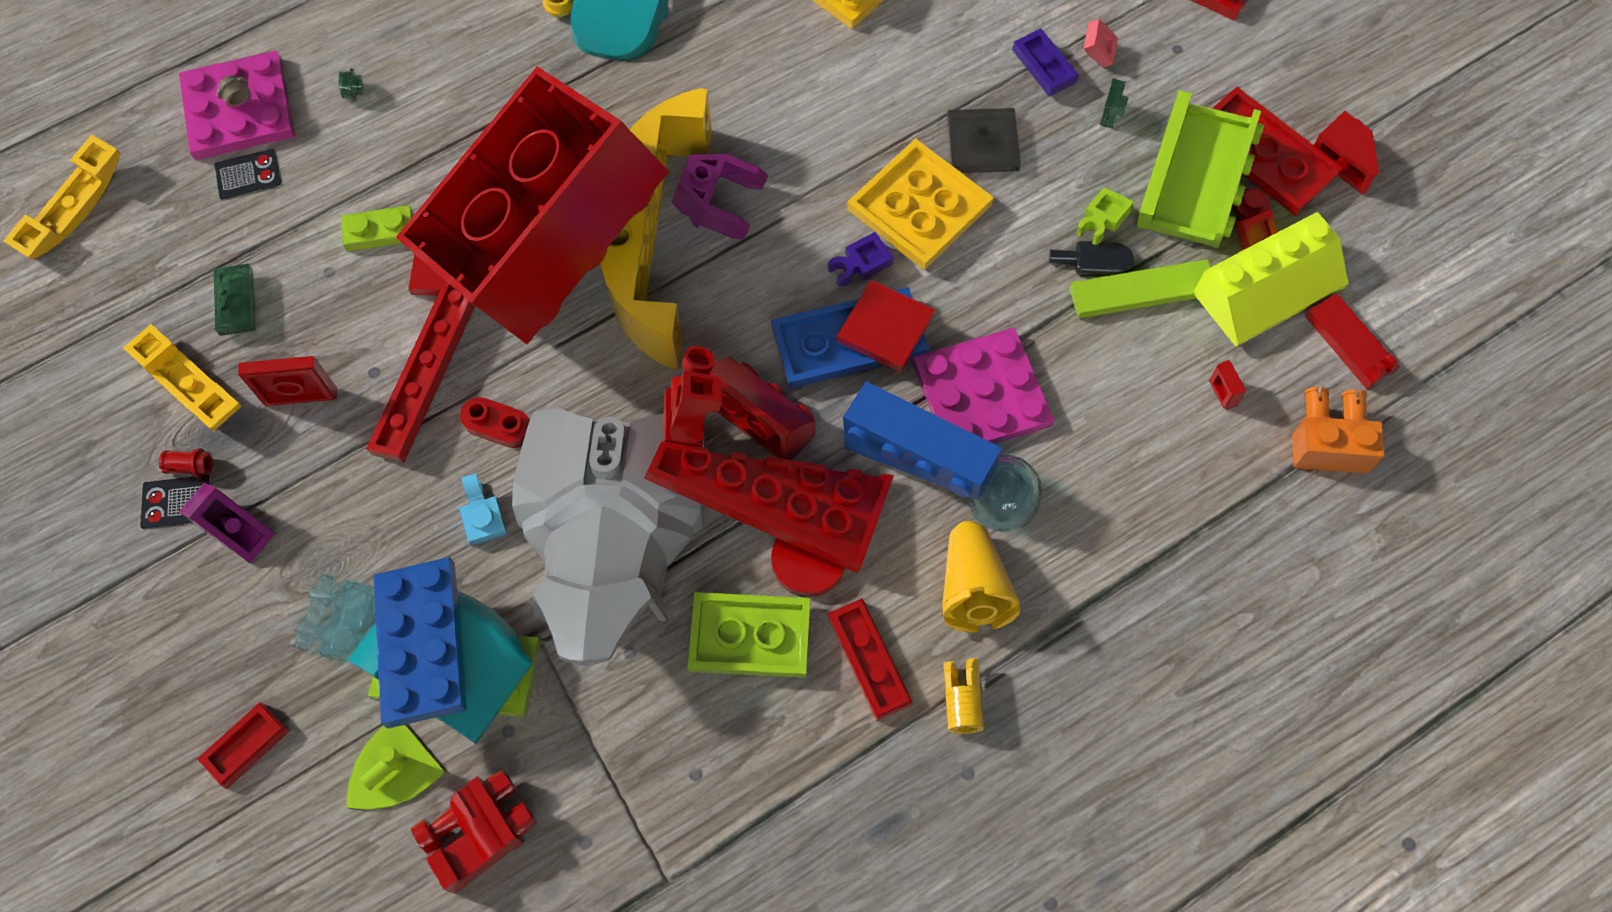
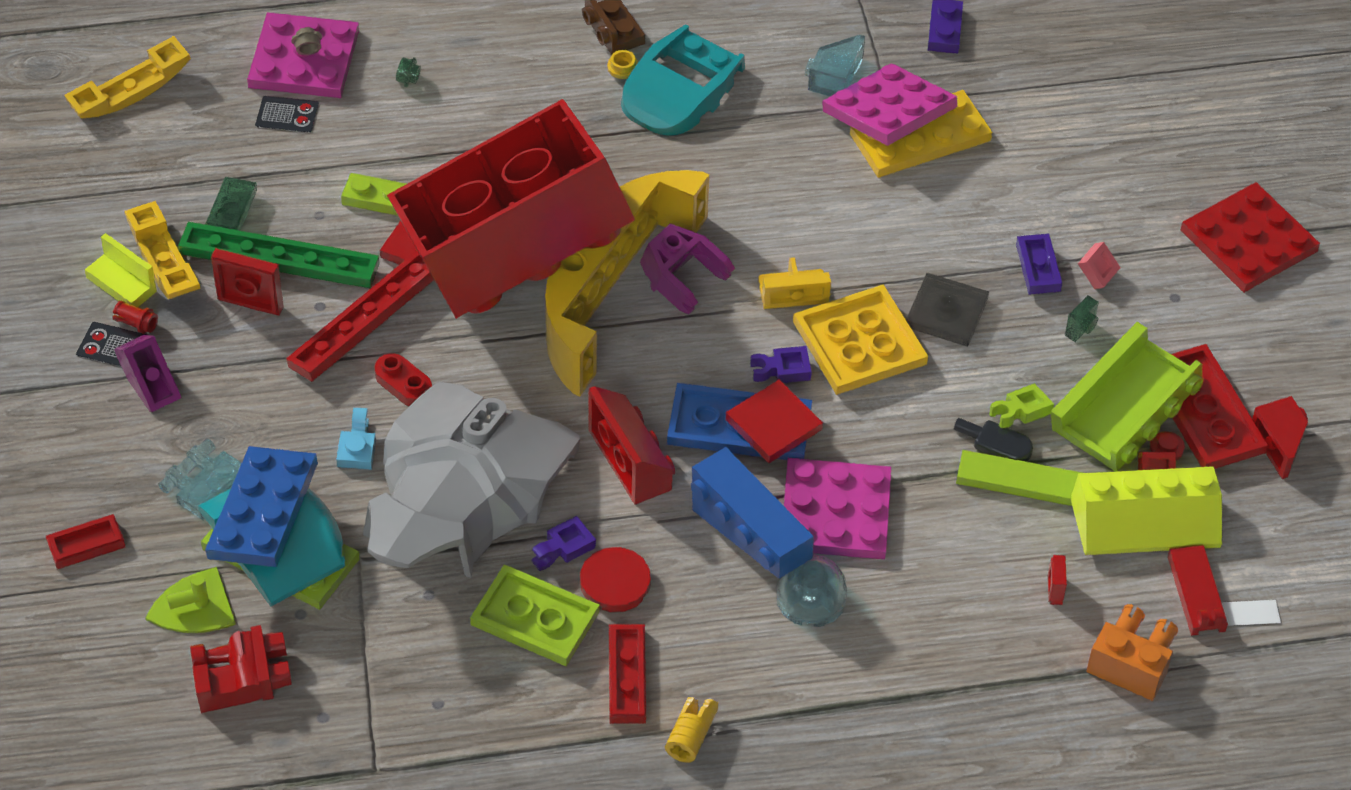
camera: 20 degrees right, 15 degrees down
(151, 420) = (122, 273): none -> neon yellow panel
(306, 334) = (292, 256): none -> green plate
(691, 398) = (567, 408): red hips -> none
(740, 541) = (564, 540): none -> dark purple plate
(789, 499) = (616, 519): red wing -> none
(831, 172) = (794, 287): none -> yellow panel
(976, 582) = (745, 646): yellow cone -> none
(1409, 342) = (1251, 612): none -> white sticker

